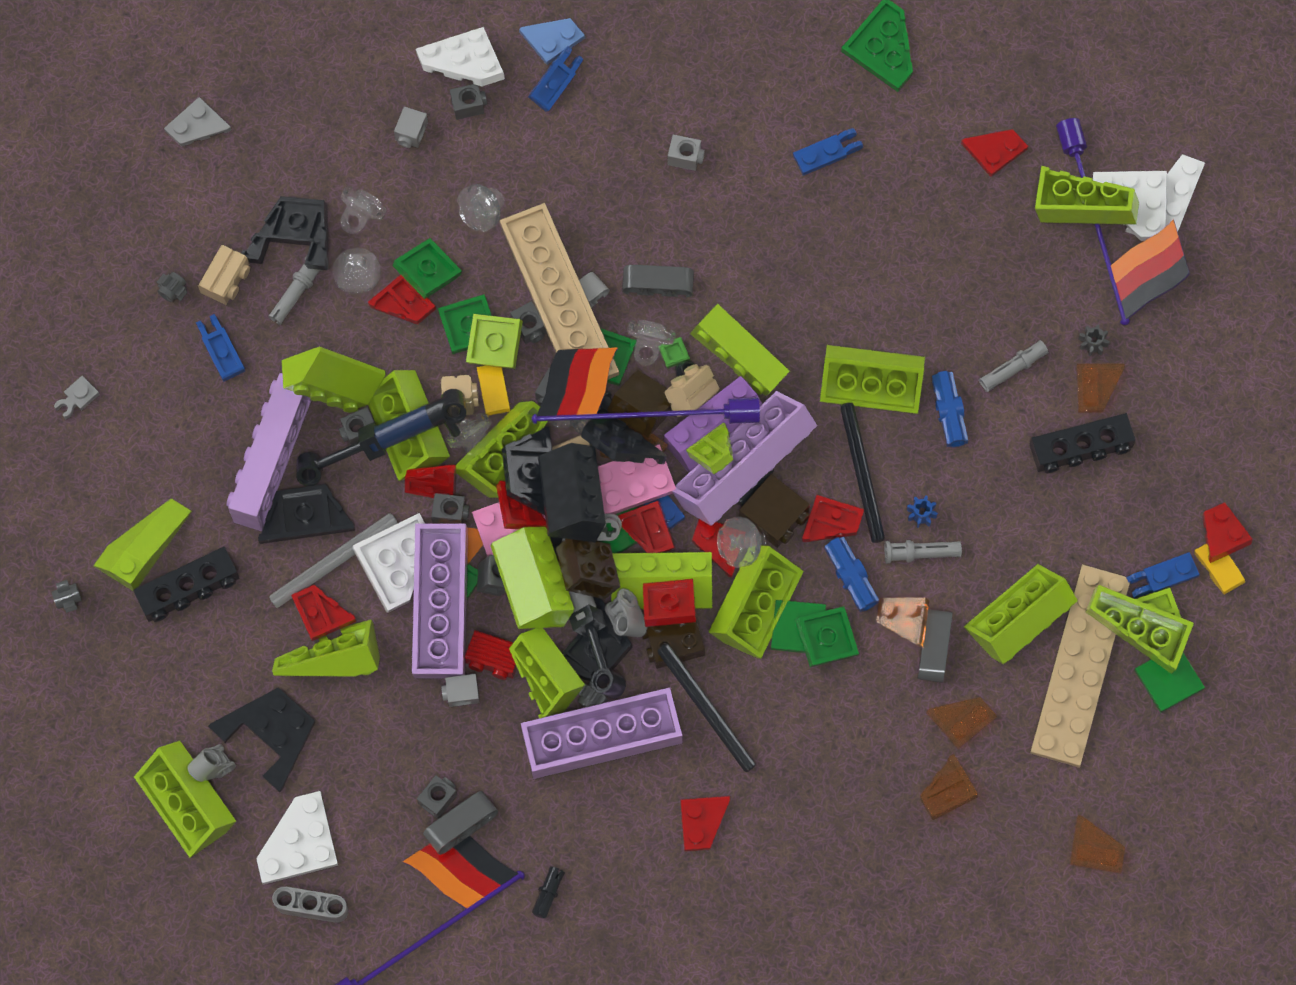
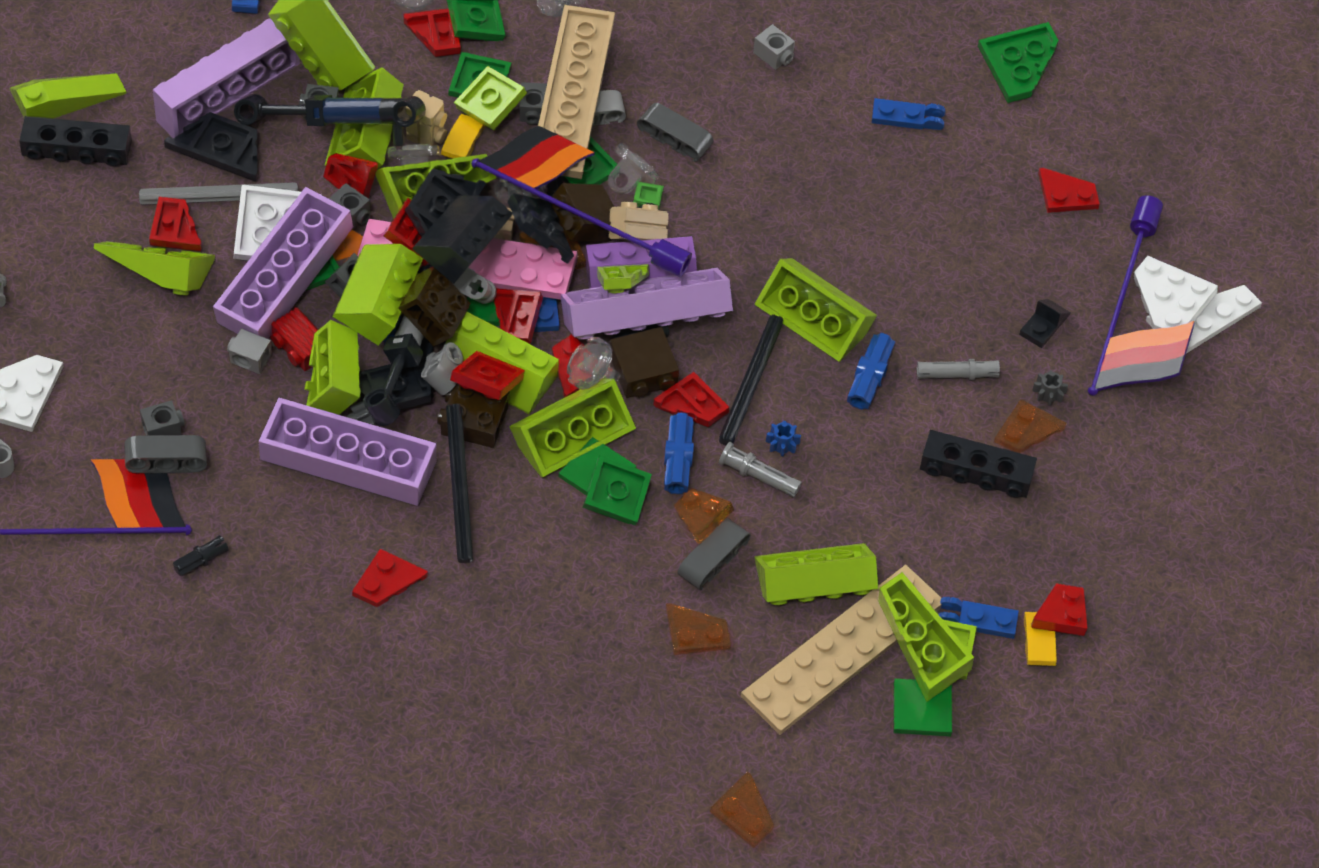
camera: 25 degrees right, 15 degrees down
(278, 724) = (68, 292): black wing -> none
(739, 350) = (707, 218): lime wedge -> none
(948, 790) = (636, 680): clear orange wing -> none
(1052, 281) = (1044, 322): none -> black slope
(1082, 200) = (1118, 265): lime wedge -> none

